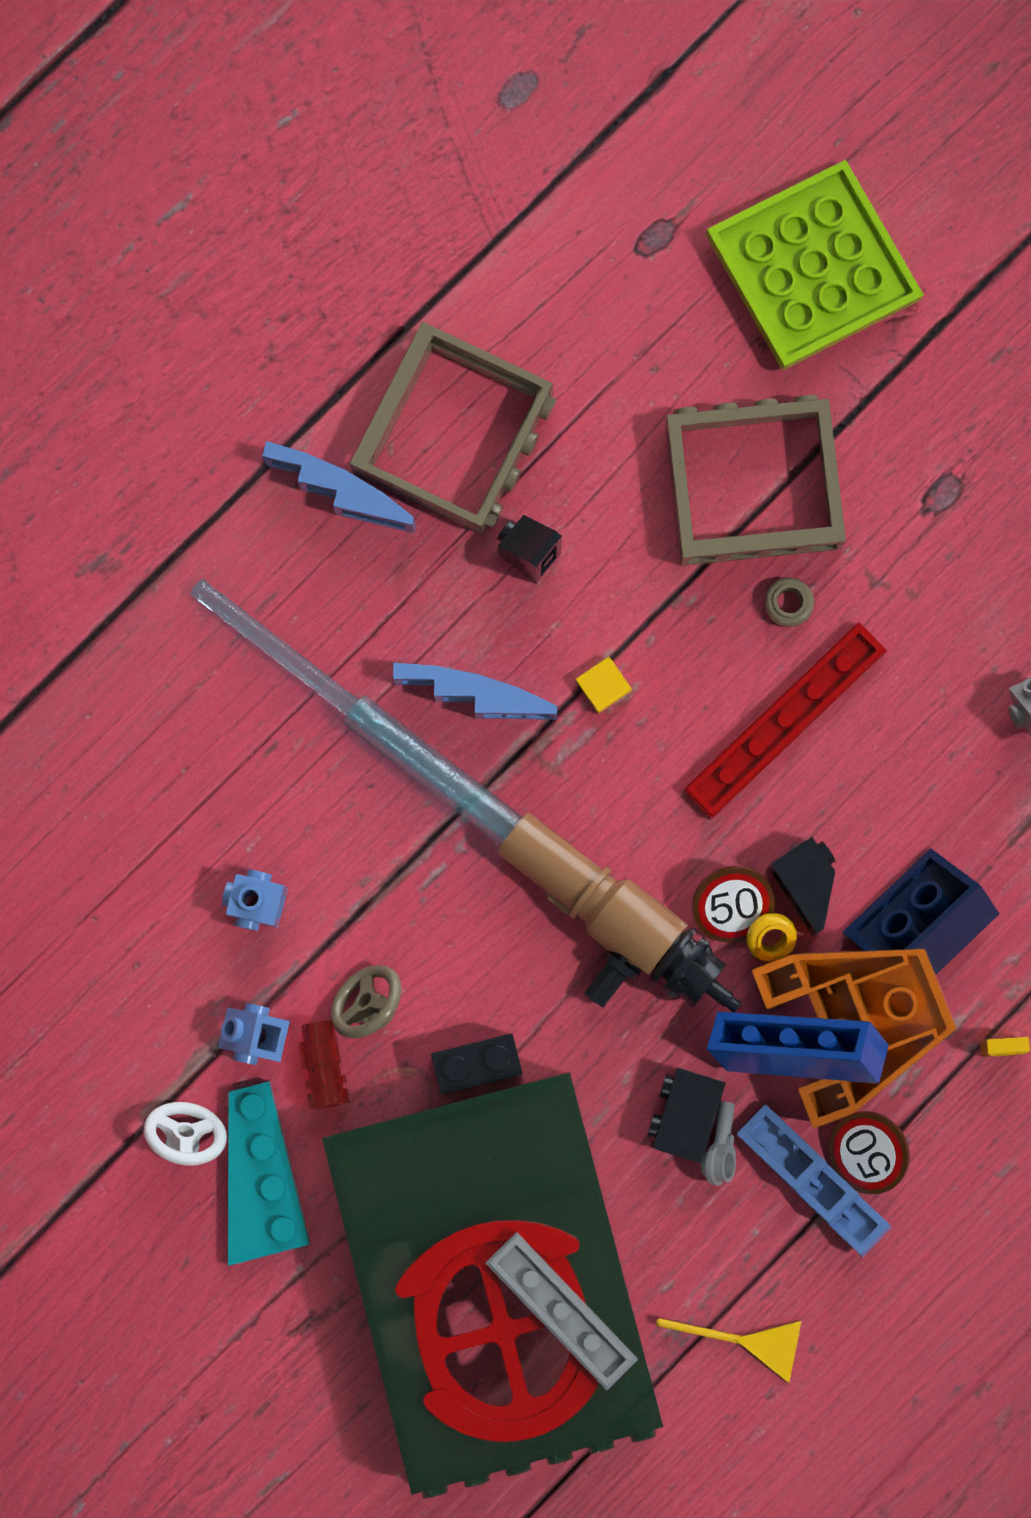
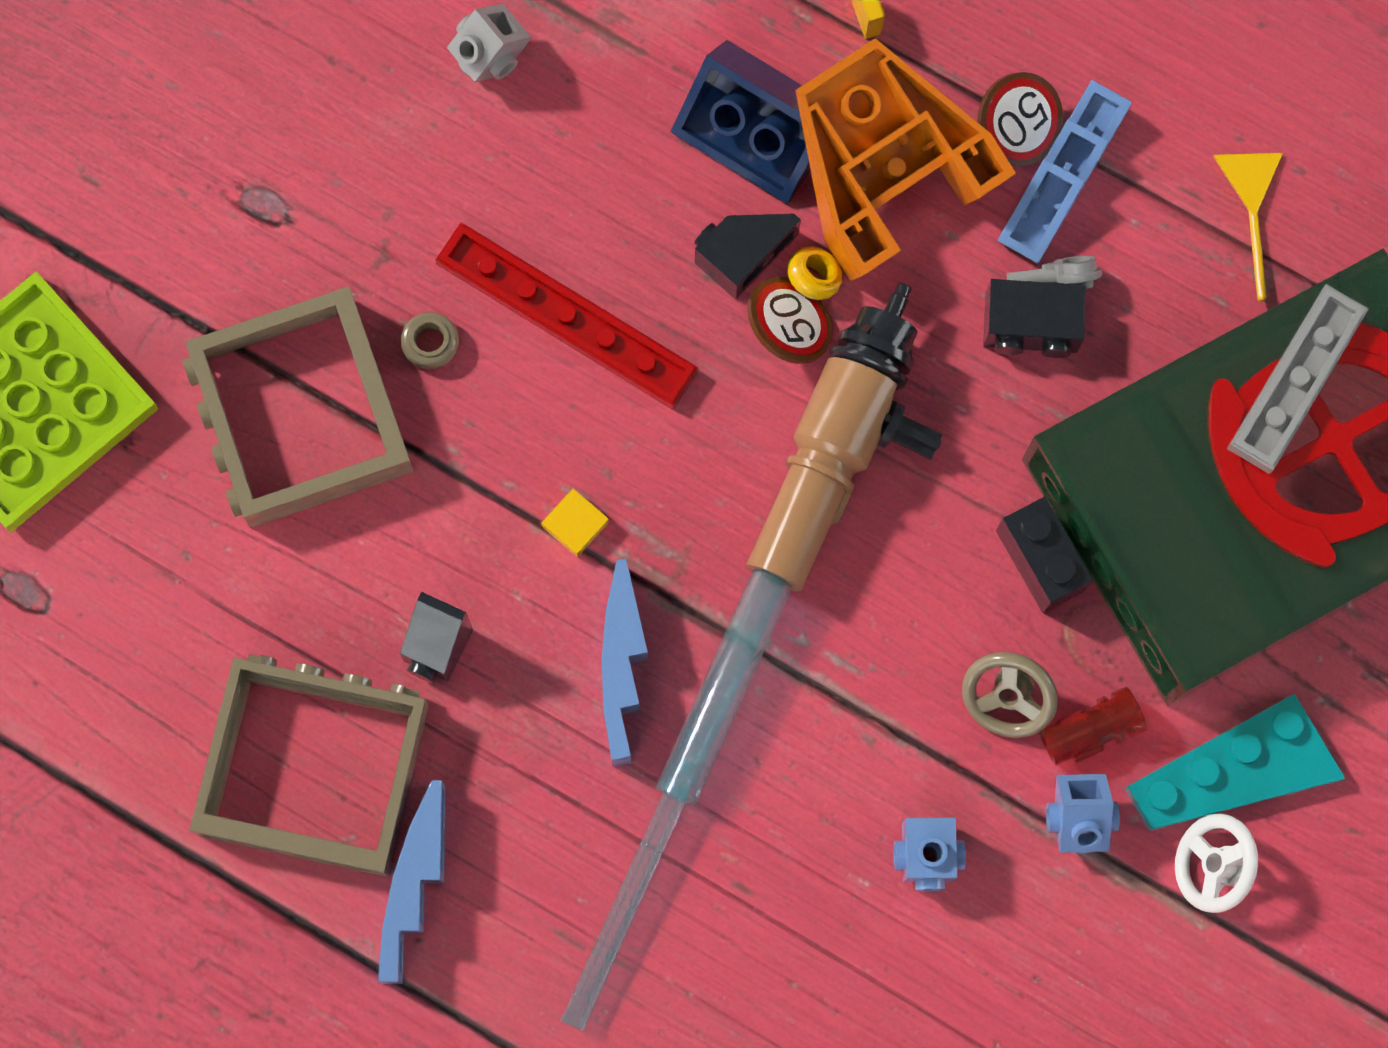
camera: 110 degrees left, 5 degrees down
(798, 1047) = (935, 204): blue brick -> none

